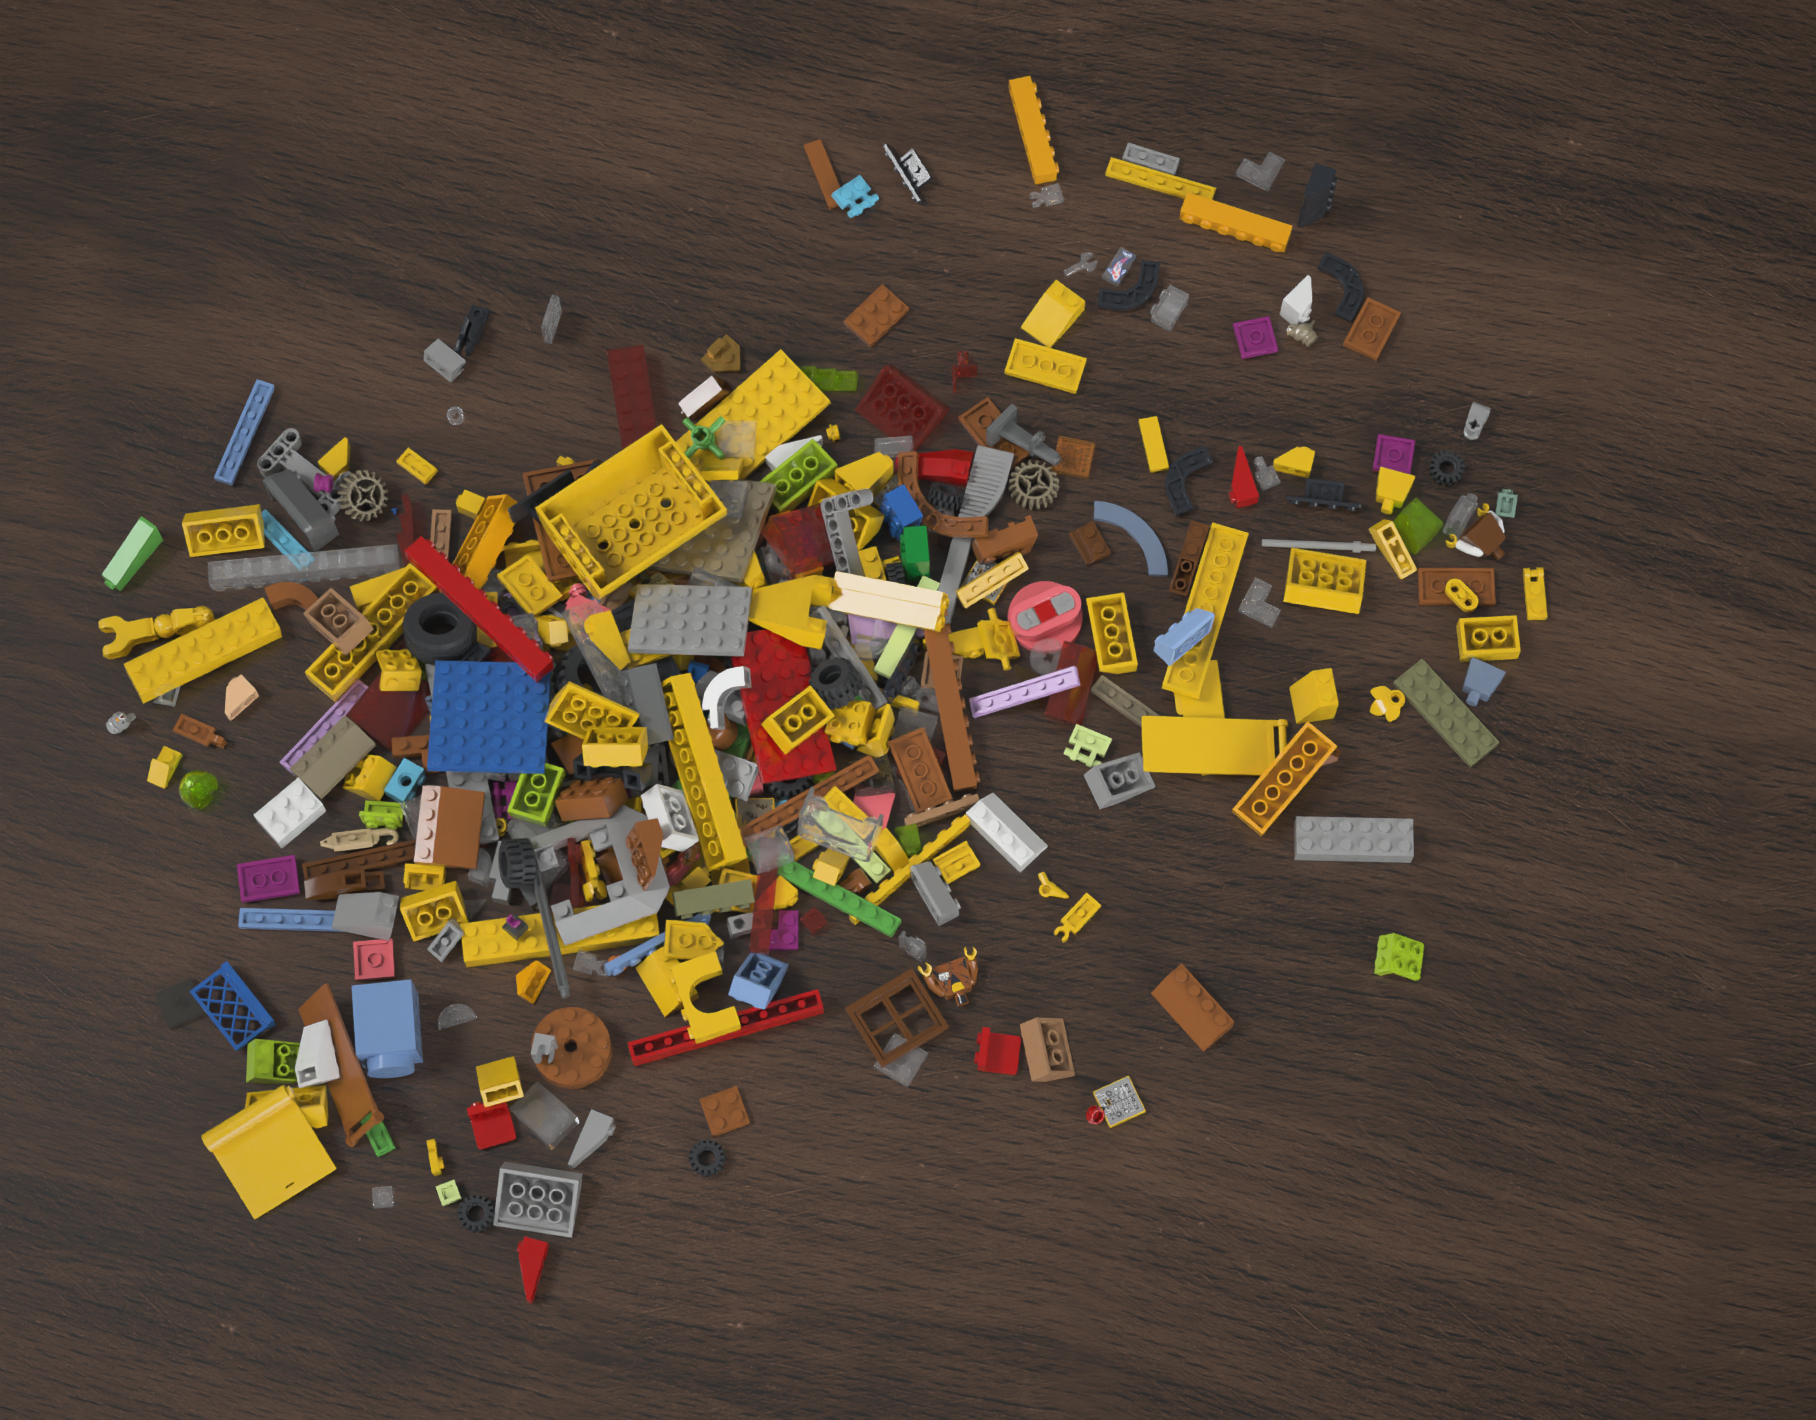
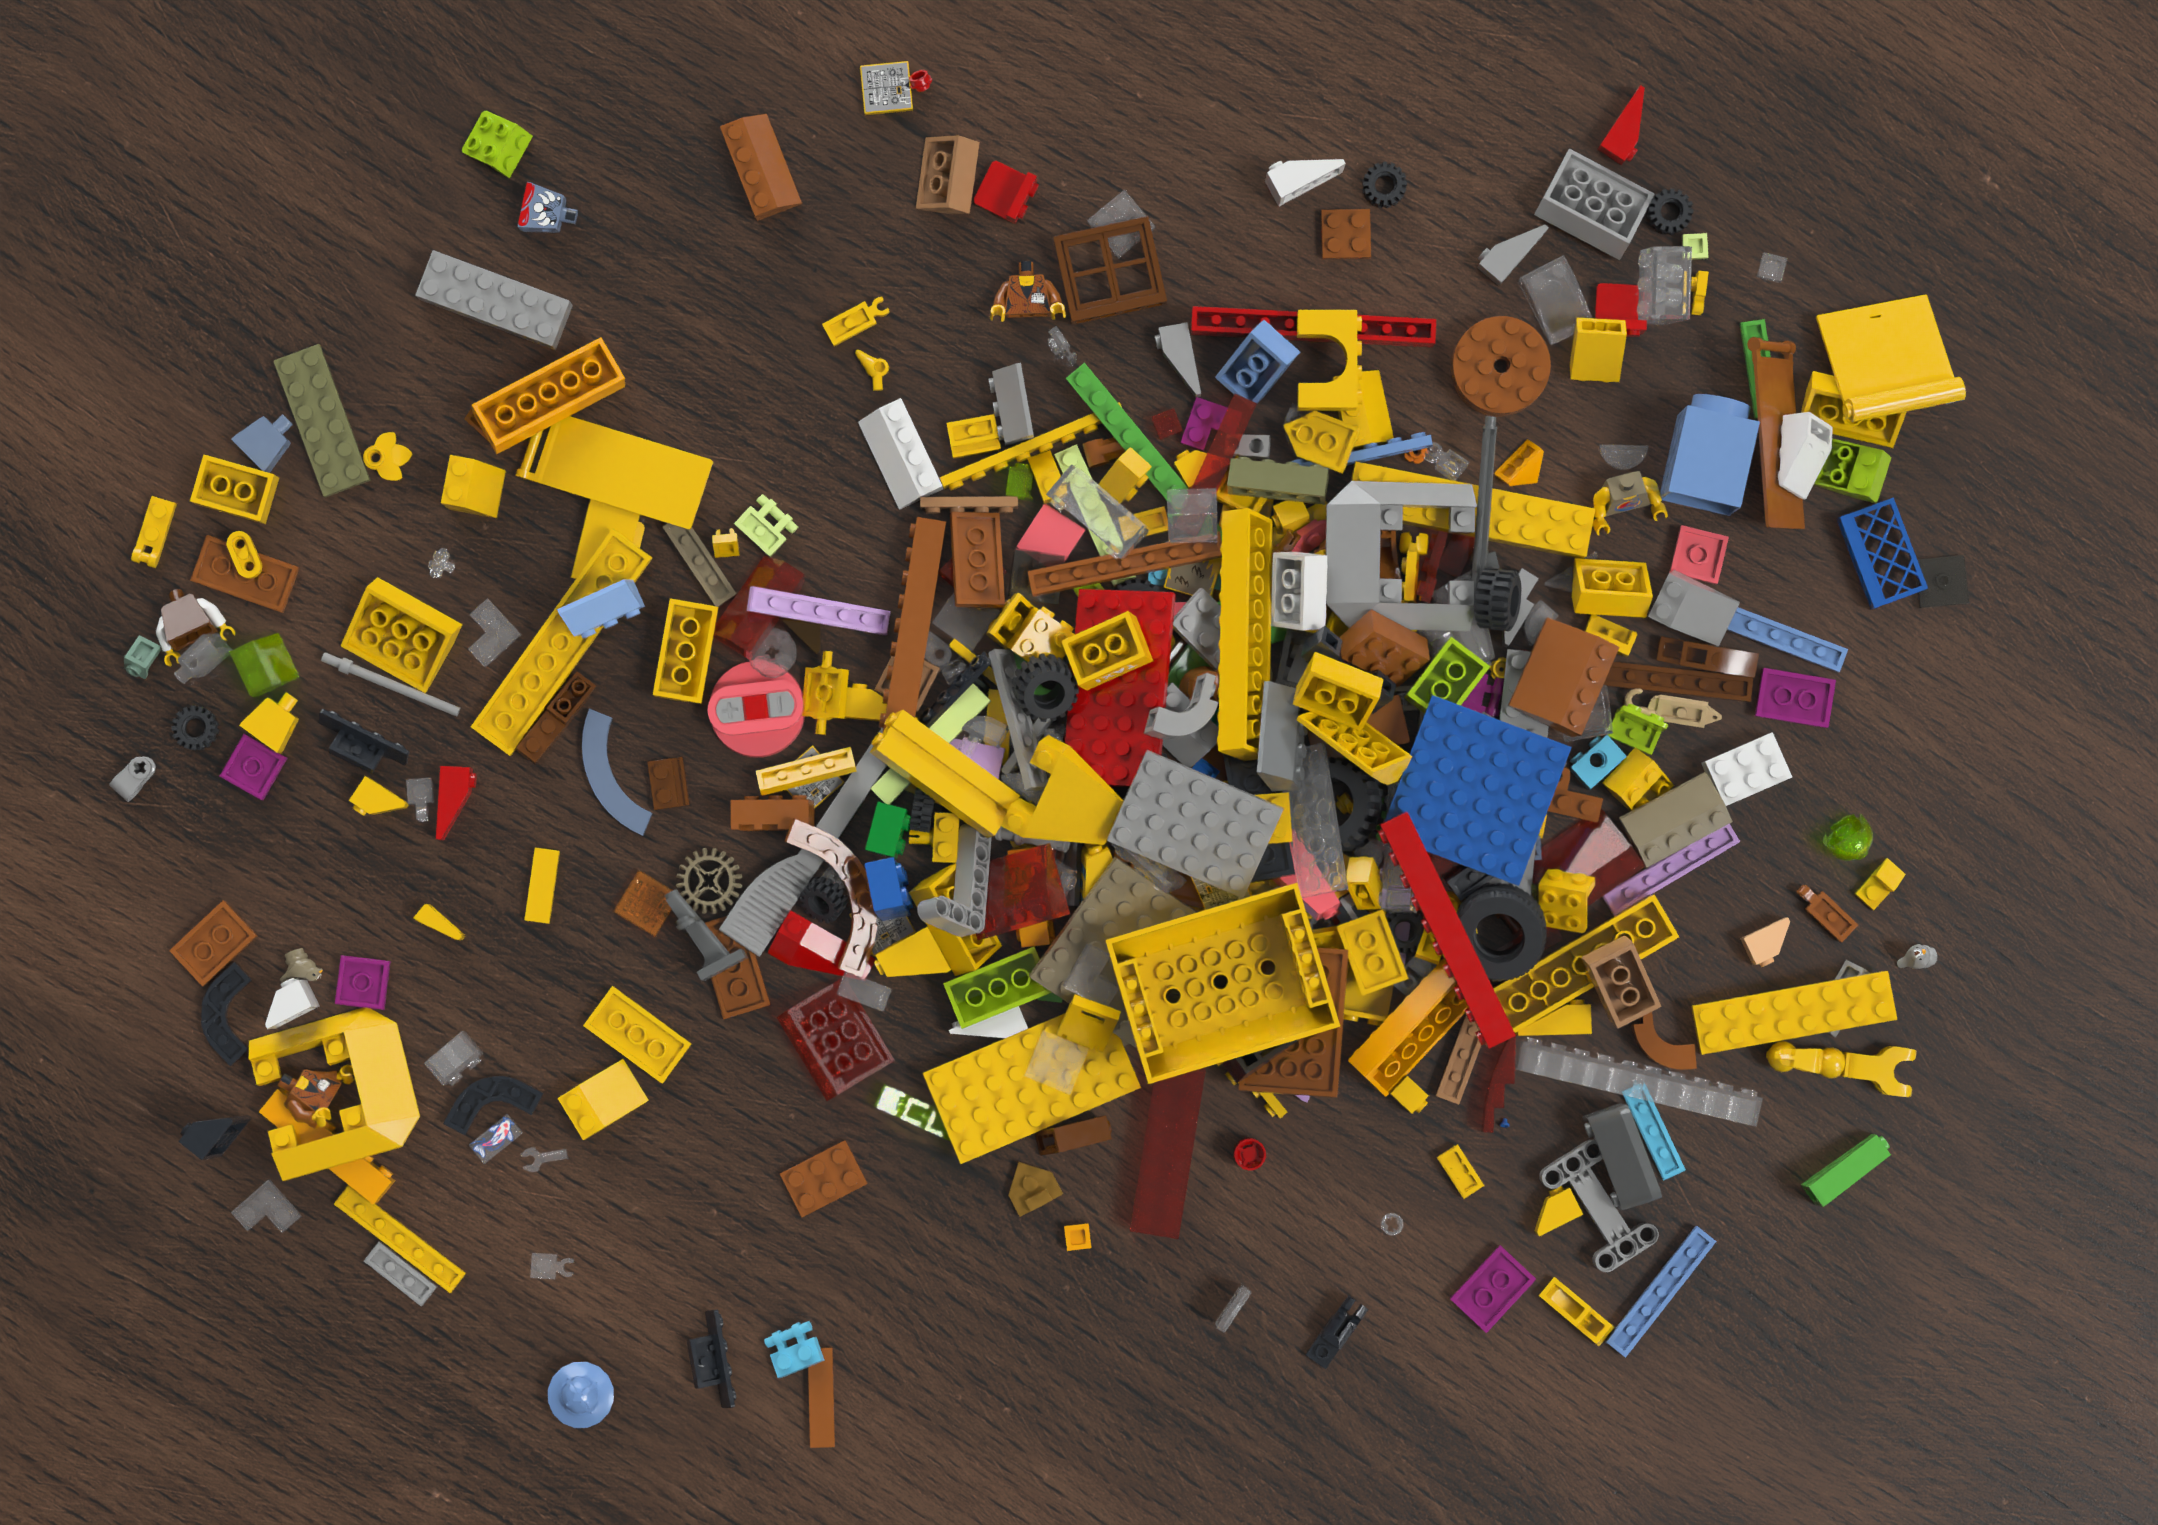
camera: 165 degrees left, 15 degrees up
(224, 530) = (1723, 1165): yellow slope -> none
(301, 399) = (1576, 1311): none -> yellow slope
(323, 483) = (1584, 1178): magenta wheel -> none
(357, 490) = (1532, 1161): dark tan gear -> none
(367, 395) = (1492, 1288): none -> magenta plate
(444, 360) = (1383, 1303): light grey hinge -> none
(444, 982) = (1625, 494): none -> torso
(446, 940) = (1607, 545): light grey slope -> none
(463, 1149) = (1664, 284): none -> clear slope
(515, 926) = (1523, 525): pearl dark grey piece -> none
(528, 504) = (1322, 1048): black bracket -> none
(543, 1045) = (1534, 363): light grey hinge -> none
(574, 426) = (1249, 1154): none -> red wheel
(578, 589) = (1317, 927): coral plate -> none
(606, 636) = (1304, 843): yellow slope -> none
(645, 846) = (1341, 548): dark orange slope -> none
(680, 334) = (1077, 1236): none -> light orange plate
(709, 440) = (1103, 1080): bright green bar -> none
(775, 1136) = (1297, 177): none -> white slope
(821, 974) = (1178, 351): none -> light grey slope
(833, 433) = (931, 1036): yellow plate -> none
(840, 802) = (1084, 540): yellow tile -> none
(963, 369) = (741, 1066): clear red bracket -> none
(993, 118) = (580, 1394): none -> medium blue helmet
(1032, 130) = (535, 1364): light orange brick -> none
(1112, 721) = (725, 544): none -> yellow tile
(1118, 780) = (745, 469): light grey slope -> none
(1178, 473) = (529, 832): black plate -> none
(1217, 277) = (382, 1079): none -> yellow slope
(1220, 394) = (434, 919): none -> yellow slope
(1259, 247) = (313, 1094): none -> torso
(1316, 639) = (440, 563): none -> clear plant
(1343, 919) = (544, 210): none -> torso
(1393, 548) = (302, 647): yellow slope -> none

